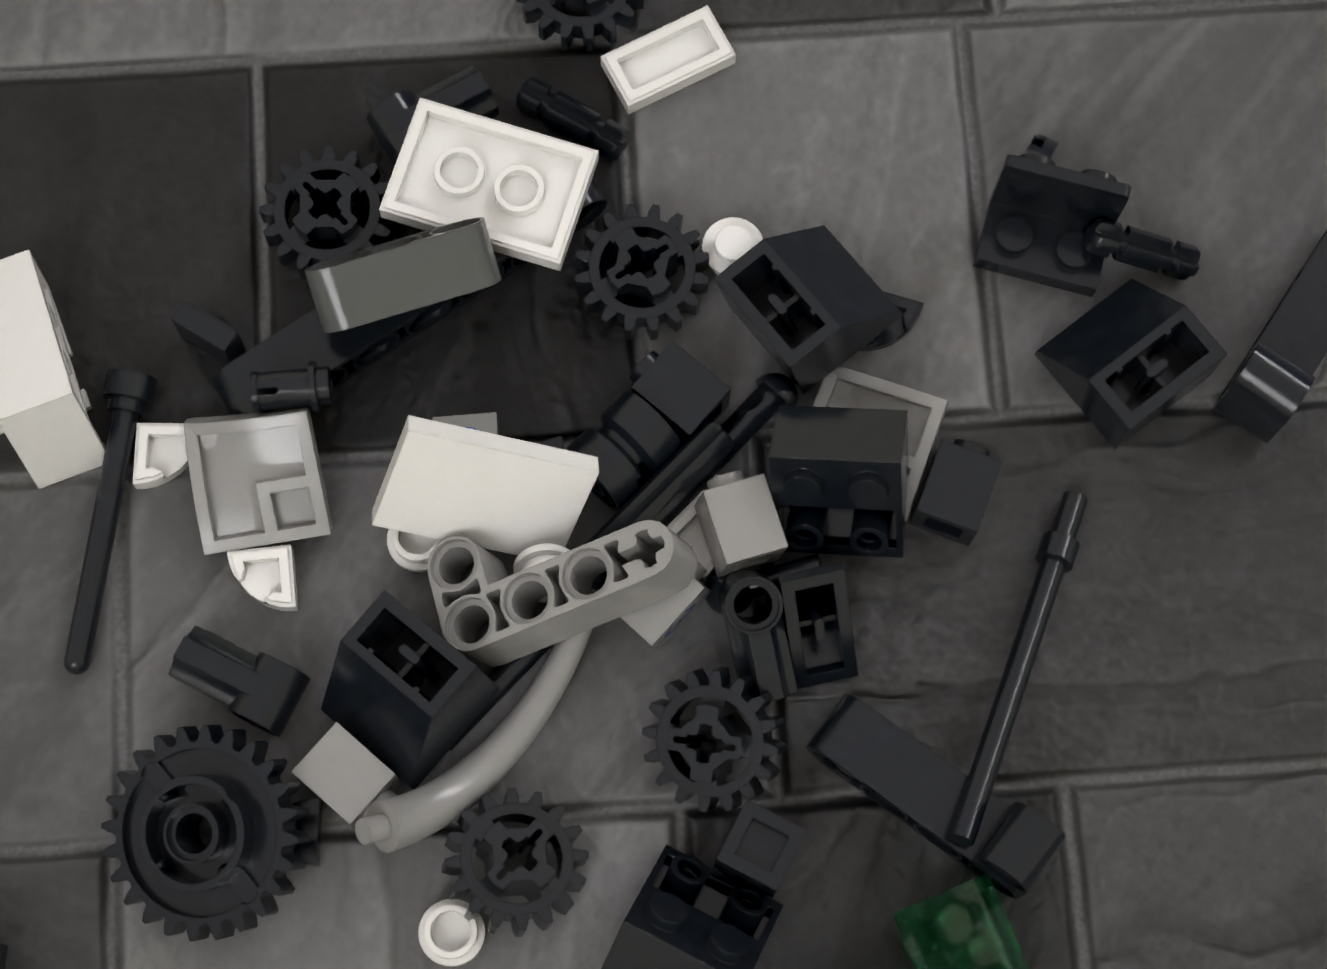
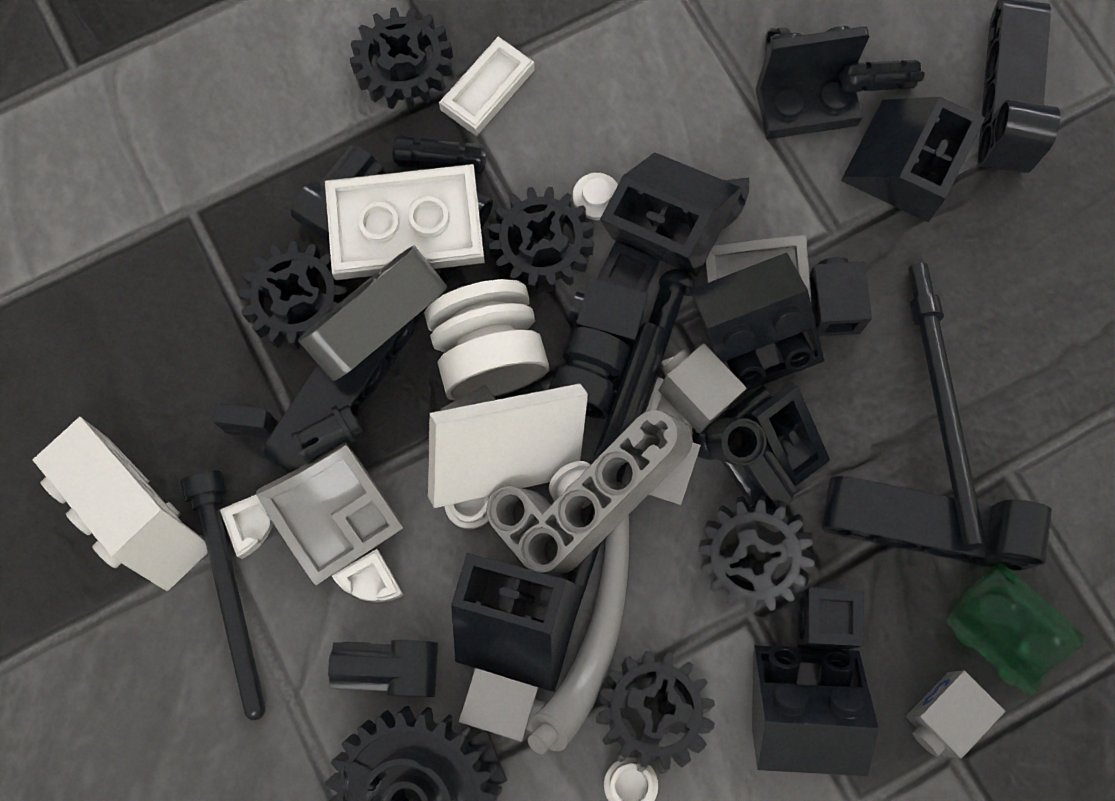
camera: 20 degrees left, 0 degrees up
(520, 360) = (486, 338): none -> white wheel
(729, 351) = (629, 267): none -> black tile

